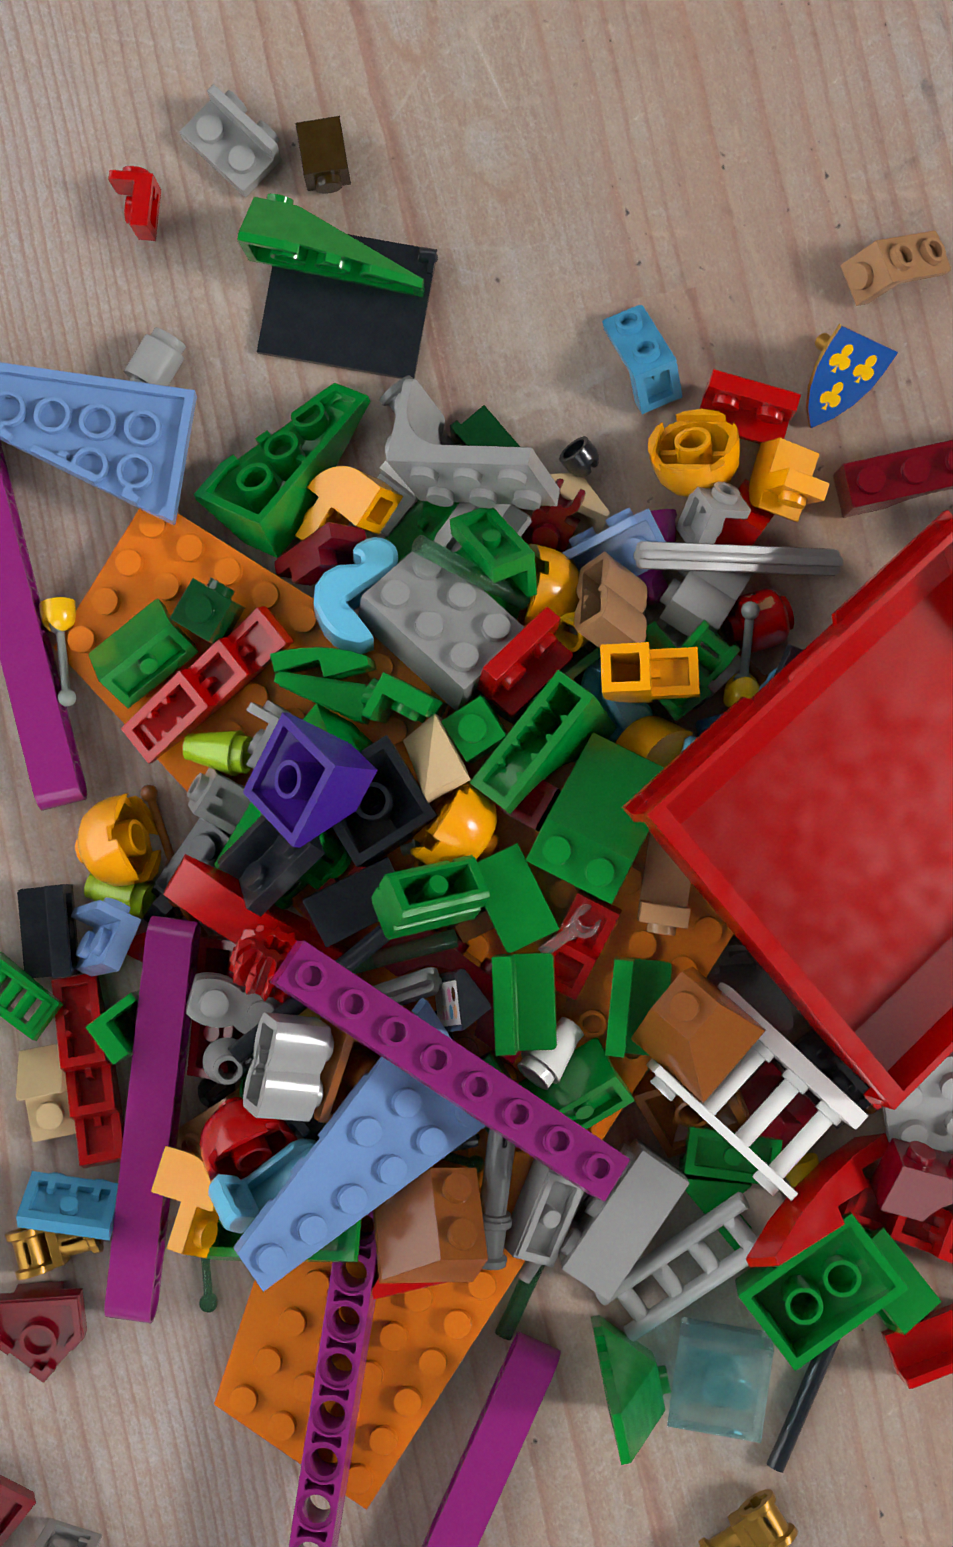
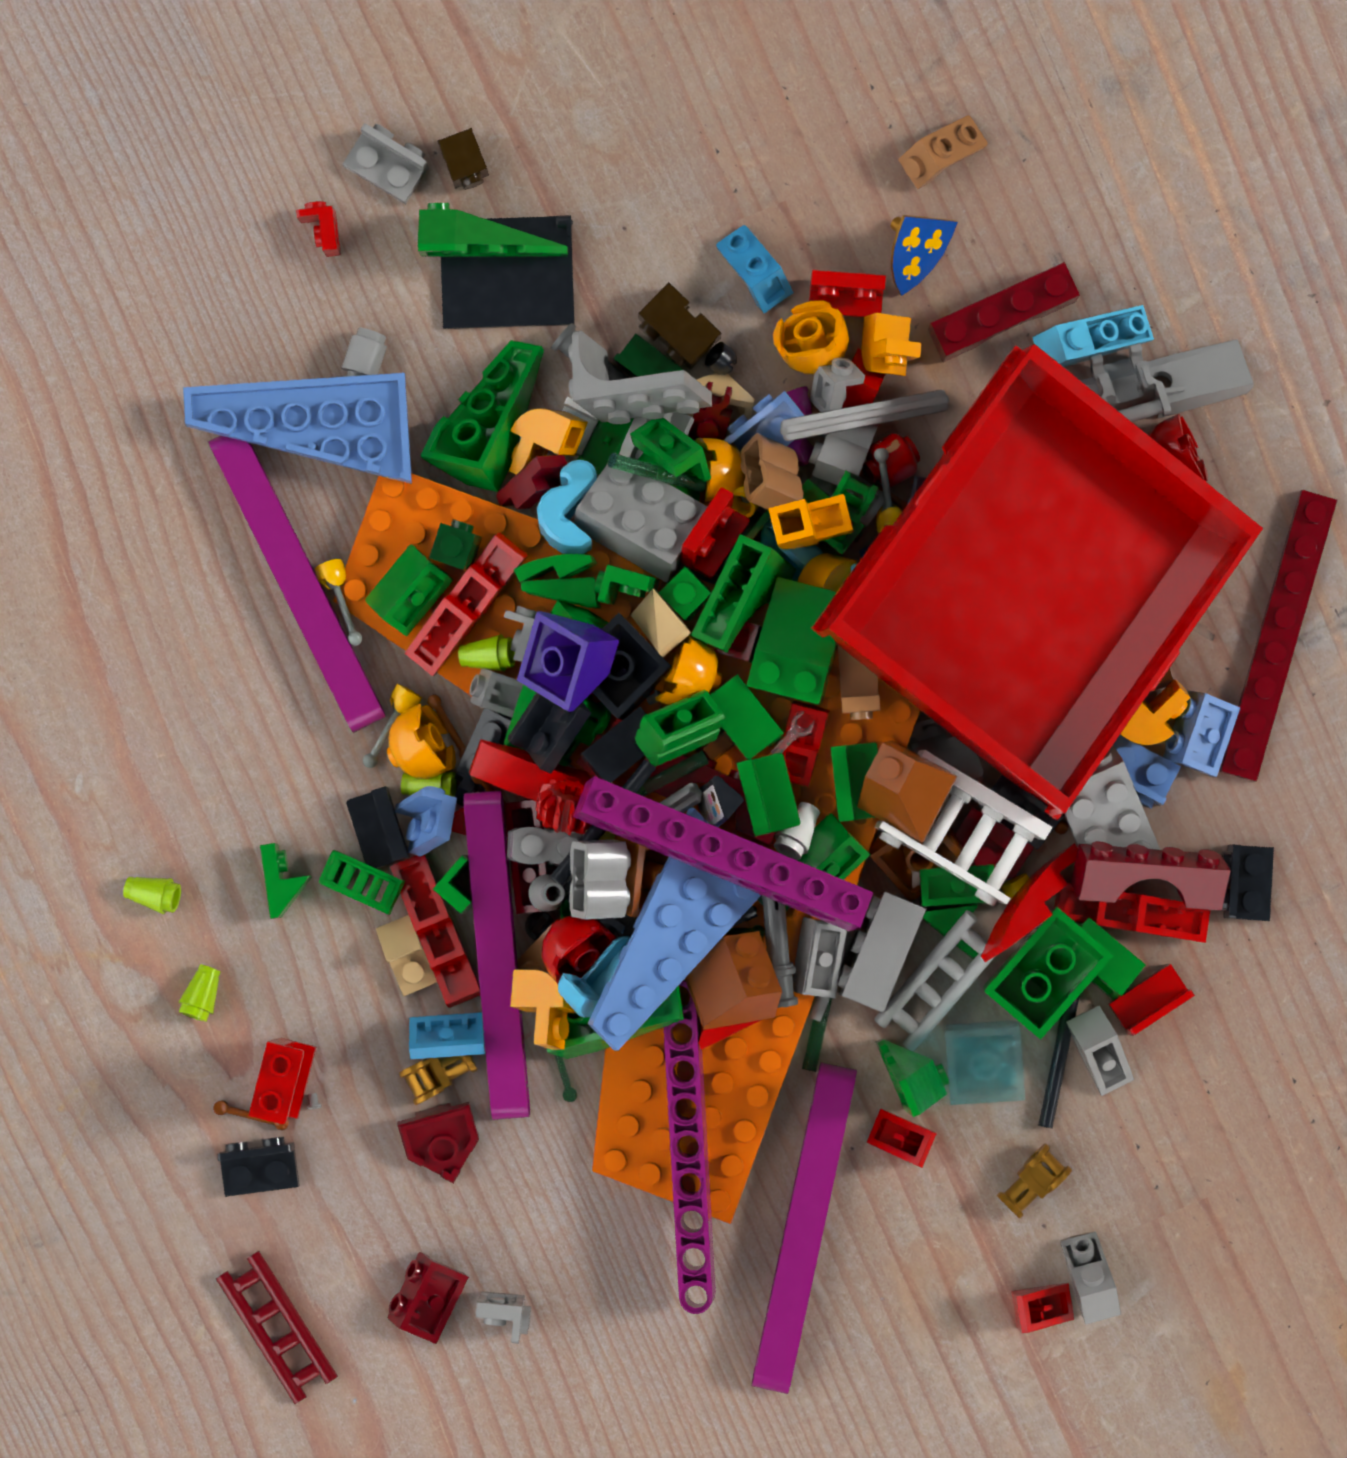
camera: 15 degrees left, 0 degrees up
(108, 783) = (400, 700): none -> hinge
(530, 400) = (672, 323): none -> dark brown brick
(592, 1445) = (901, 1137): none -> red slope
(862, 1390) = (1100, 1050): none -> light grey slope

